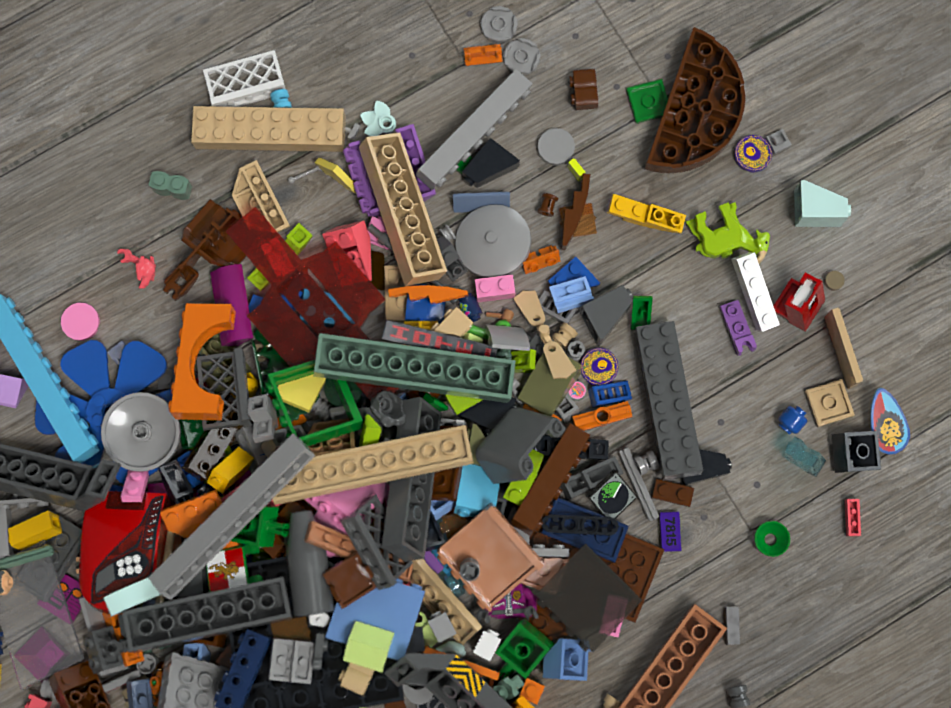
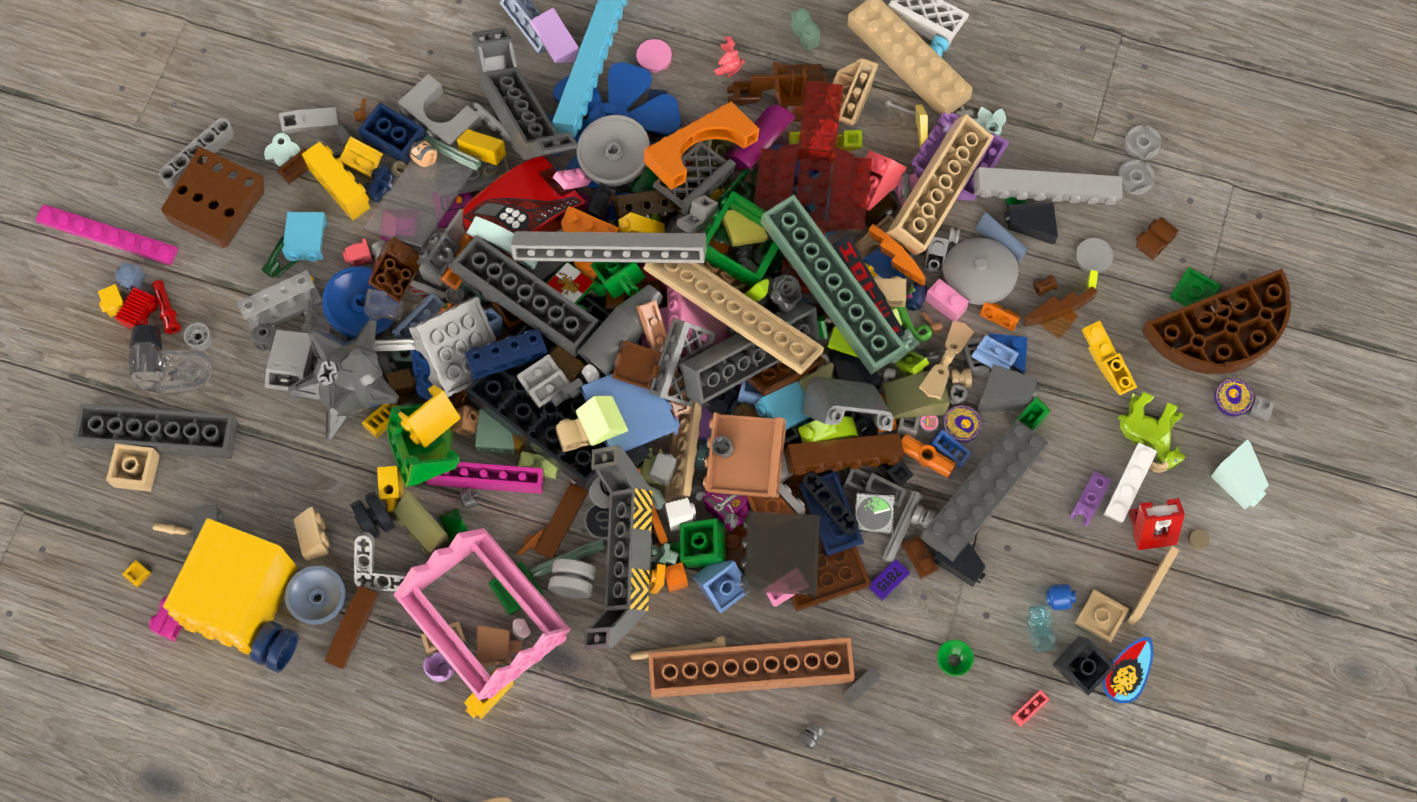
camera: 50 degrees right, 10 degrees down
(483, 55) = (1109, 149): orange hinge -> none
(507, 337) = (918, 335): light grey slope -> none

